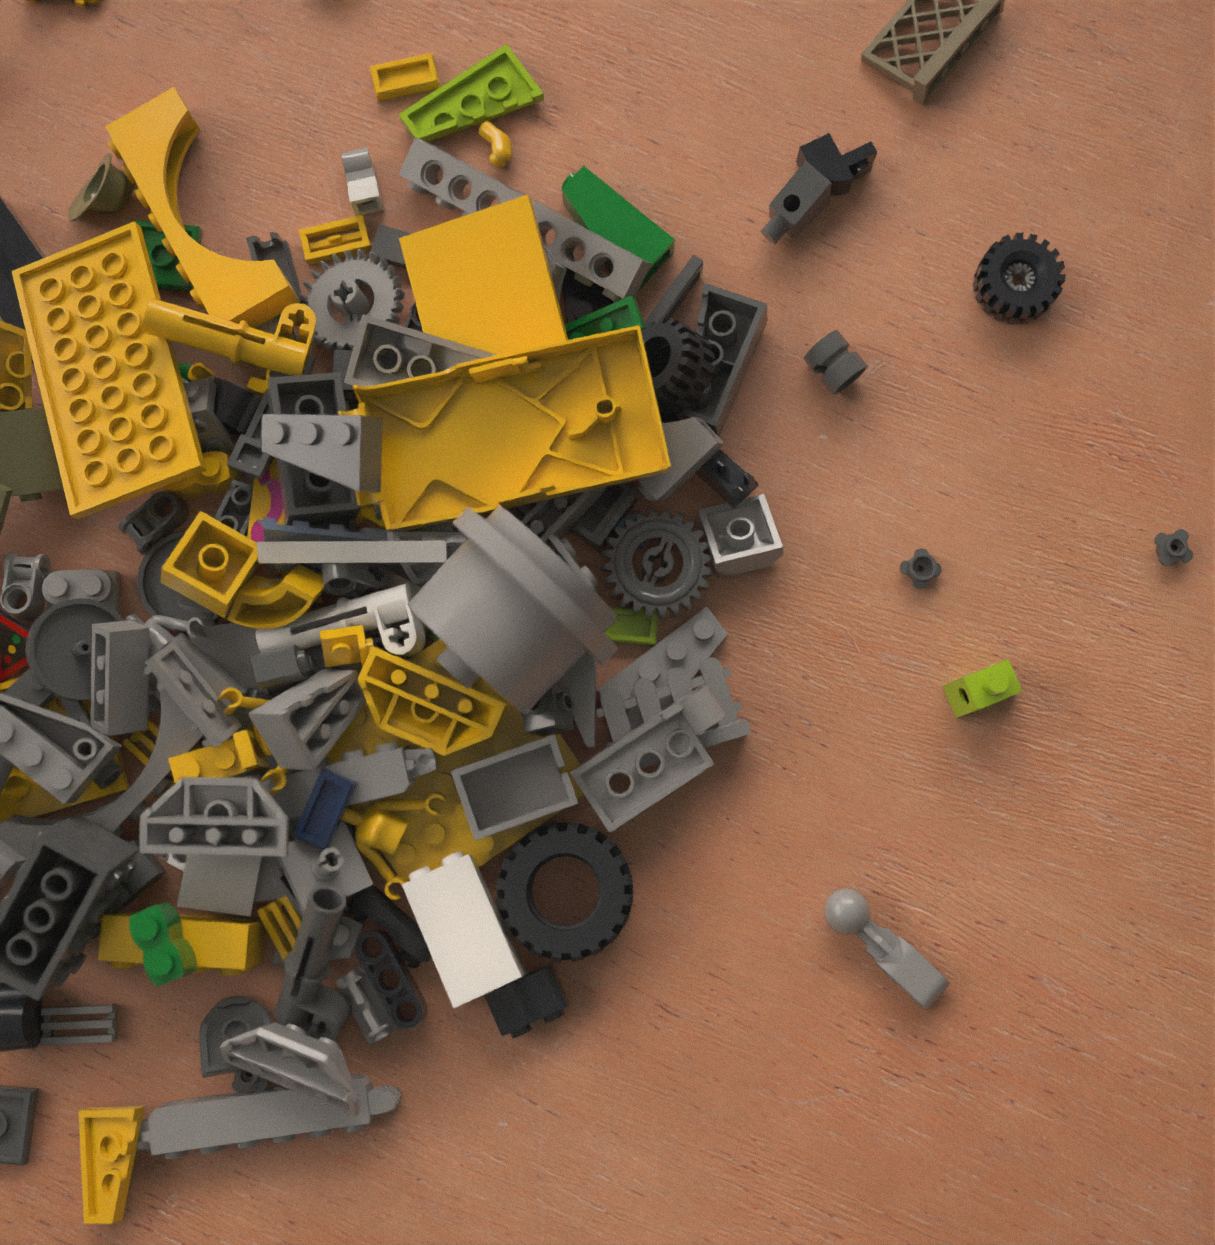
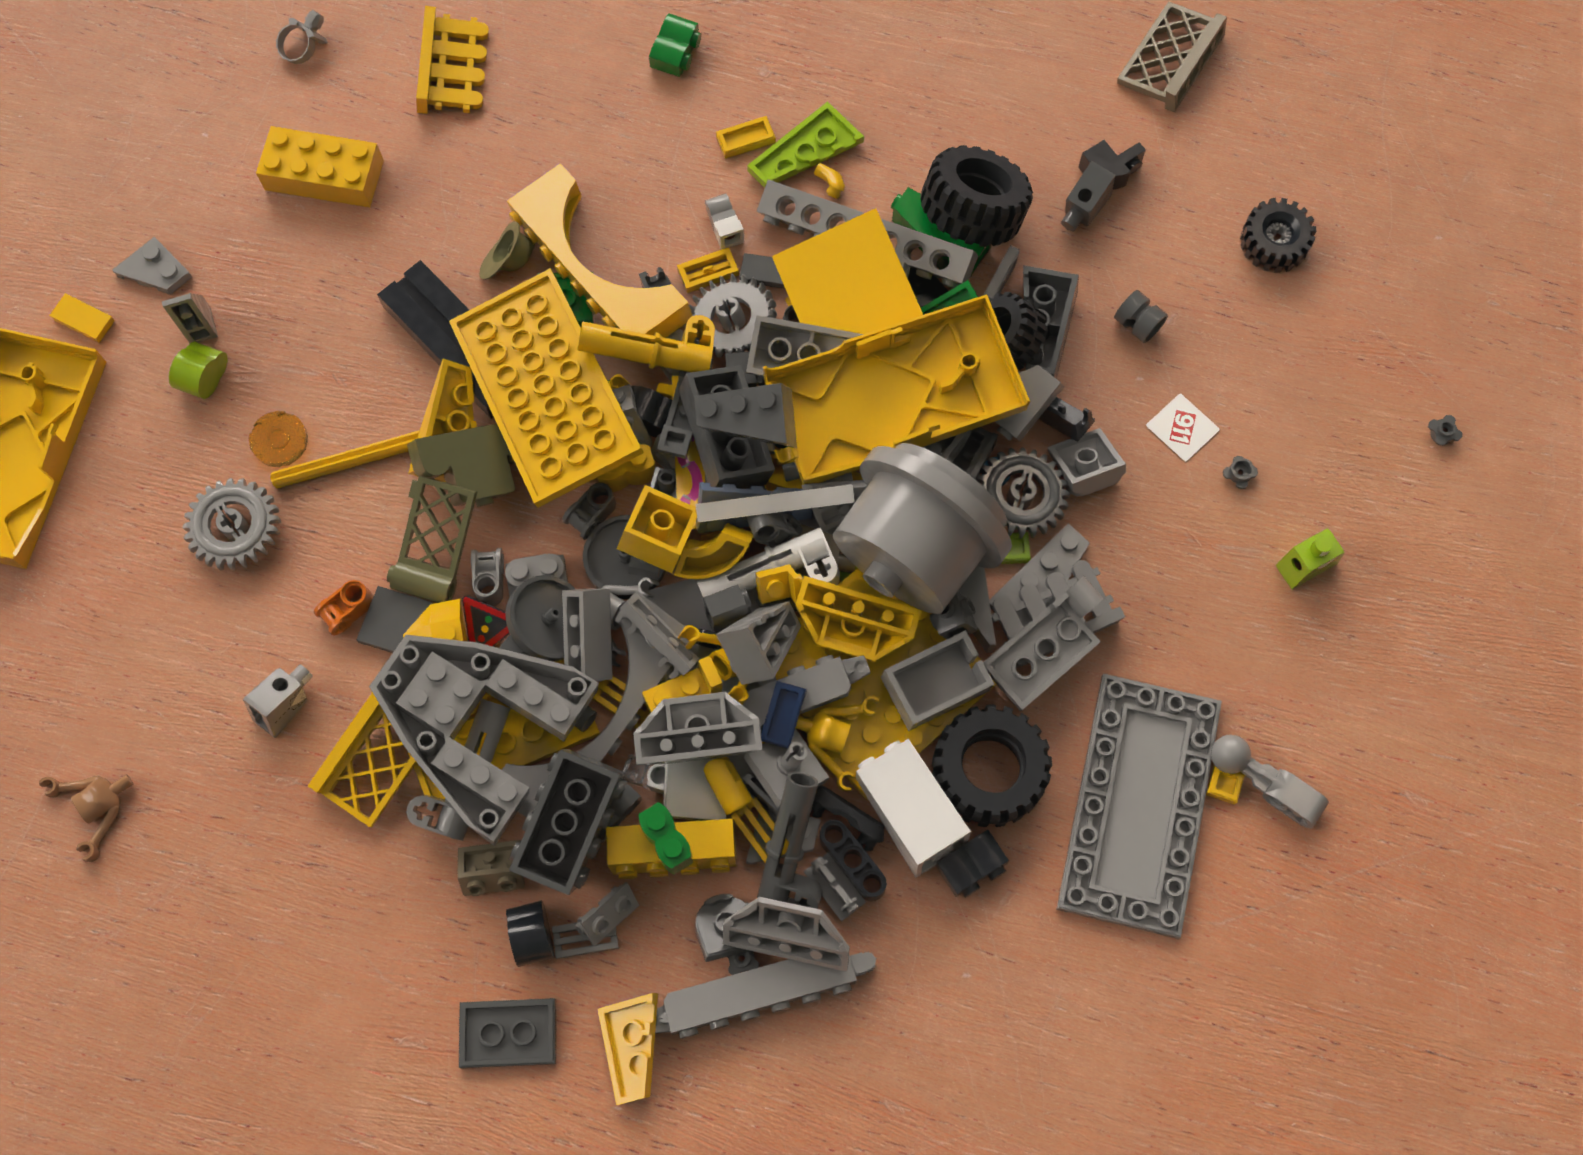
camera: 10 degrees left, 10 degrees down
(97, 1010) = (608, 914): none -> light grey hinge
(254, 882) = (727, 785): none -> yellow arm
(646, 213) = (976, 195): none -> black tyre
(732, 954) = (1140, 806): none -> light grey tile
(834, 945) = (1225, 786): none -> yellow tile
(863, 503) = (1182, 427): none -> white sticker

